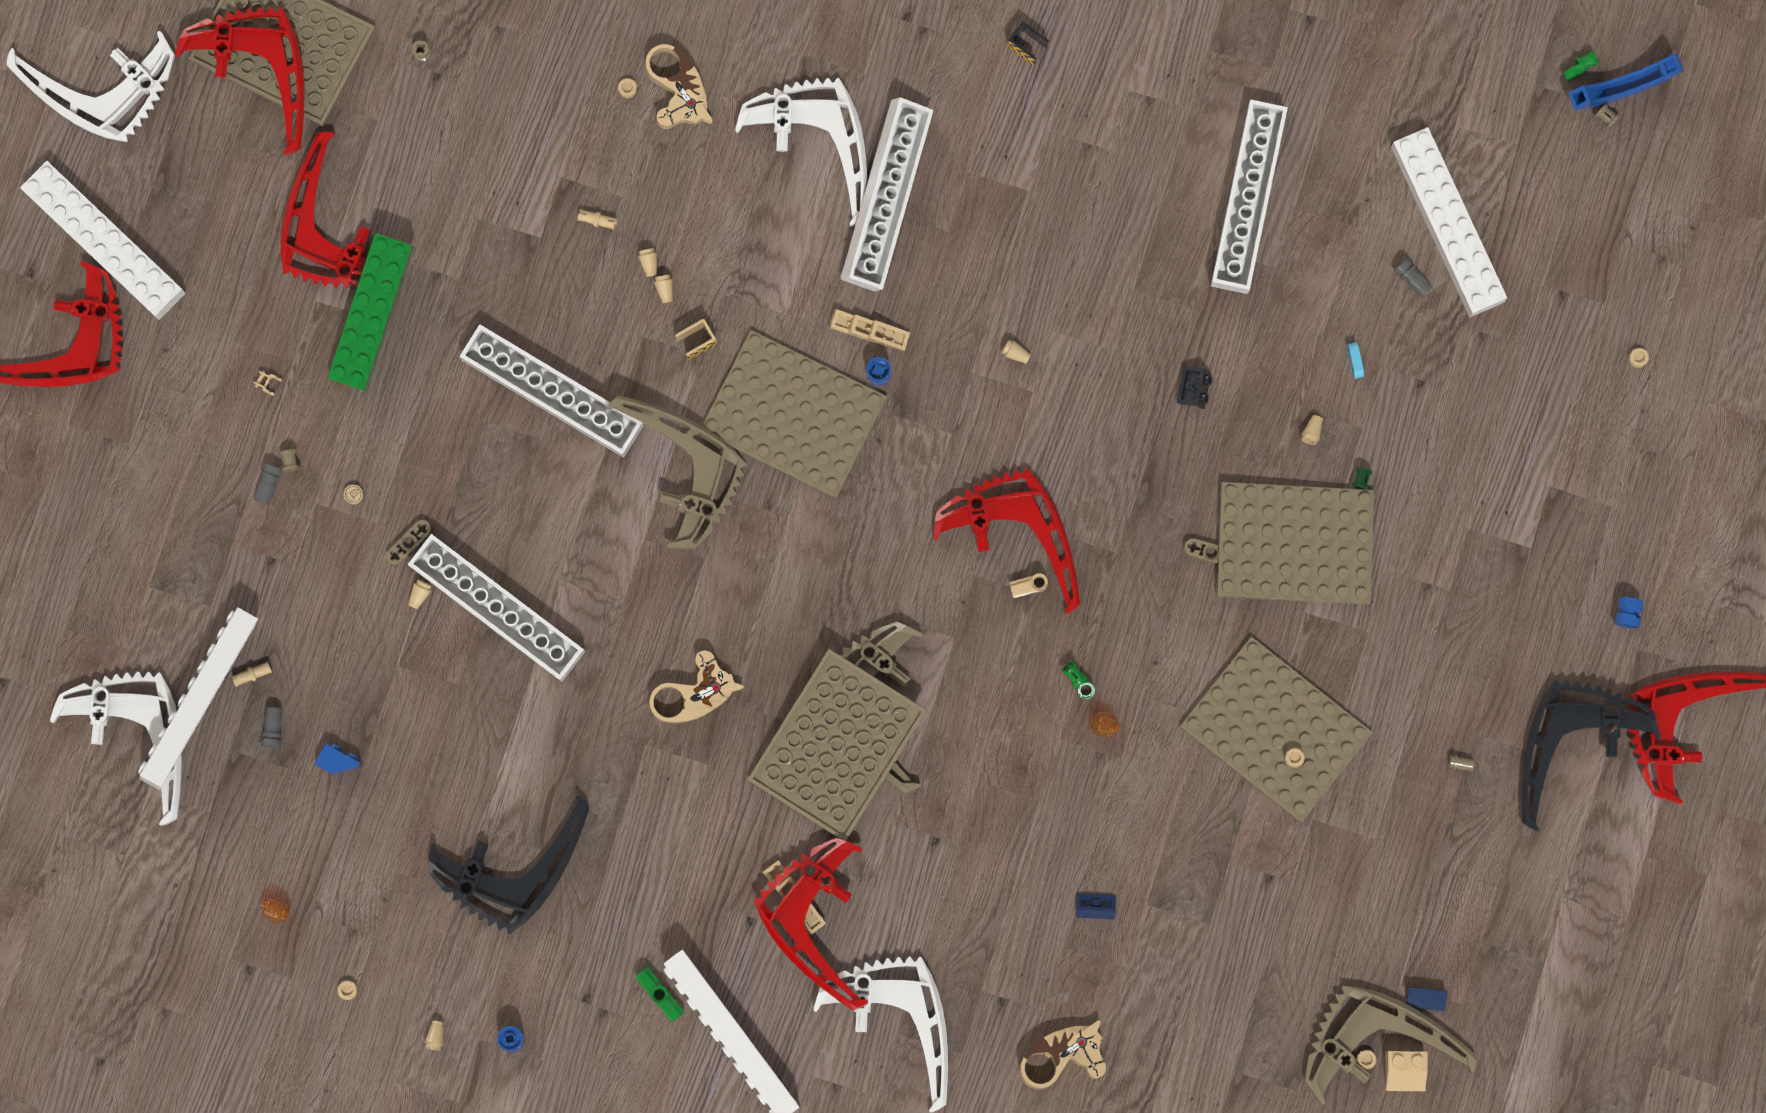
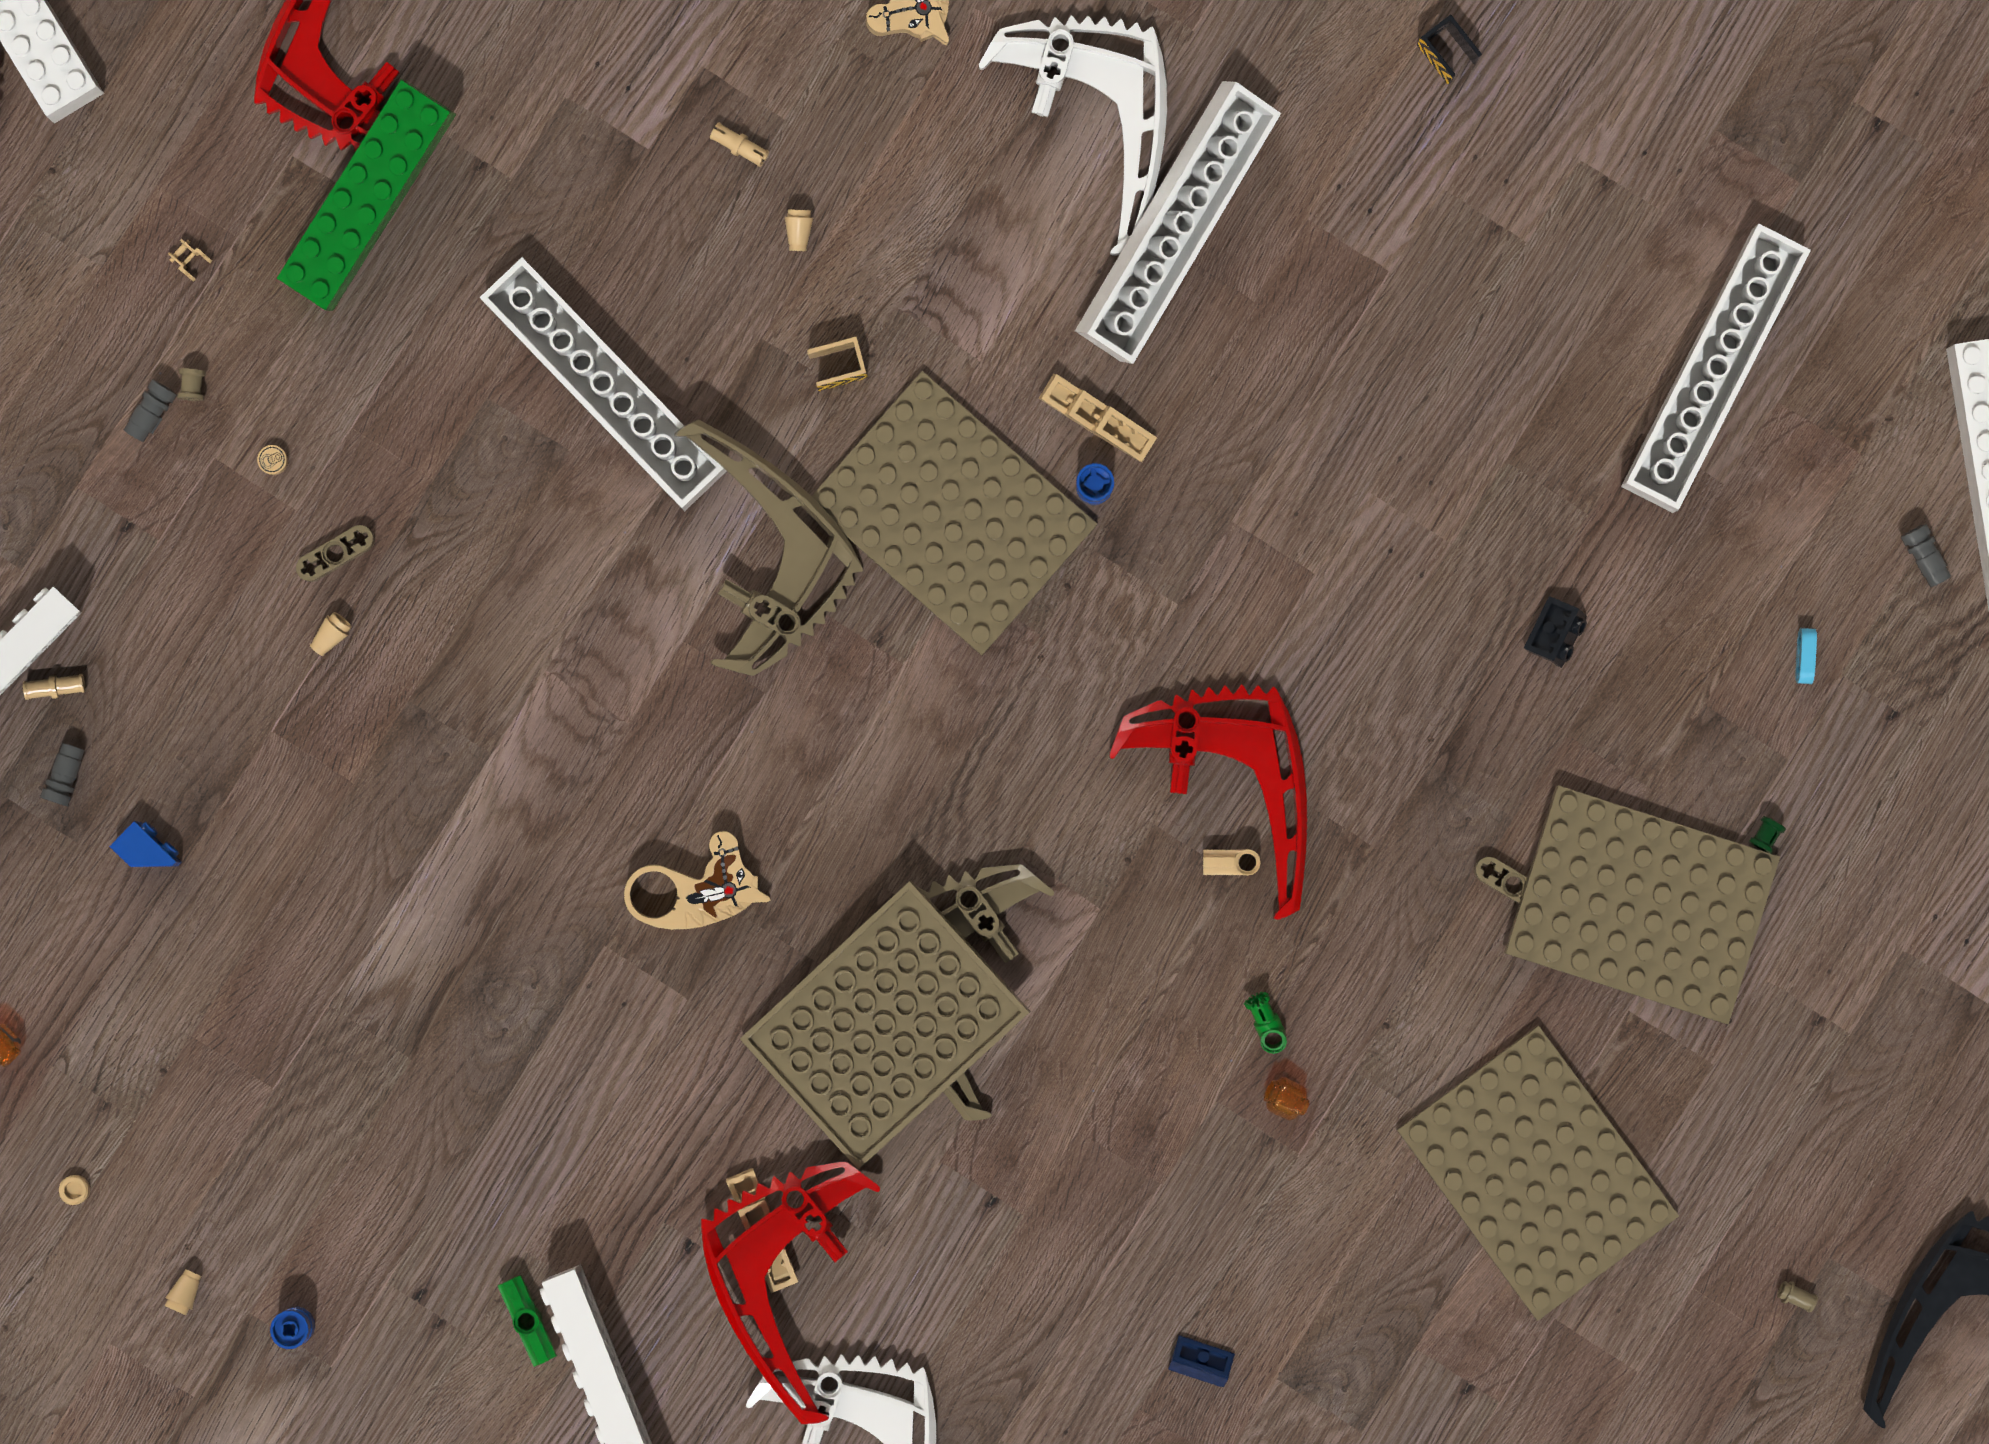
camera: 15 degrees right, 5 degrees up
(496, 608) = (437, 686): white brick -> none
(509, 892) = (345, 1110): black piece -> none
(664, 286) = (811, 274): tan cone -> none
(1015, 351) = (1305, 508): tan cone -> none
(1294, 757) = (1553, 1223): tan tile -> none
(1312, 431) = (1713, 744): tan cone -> none

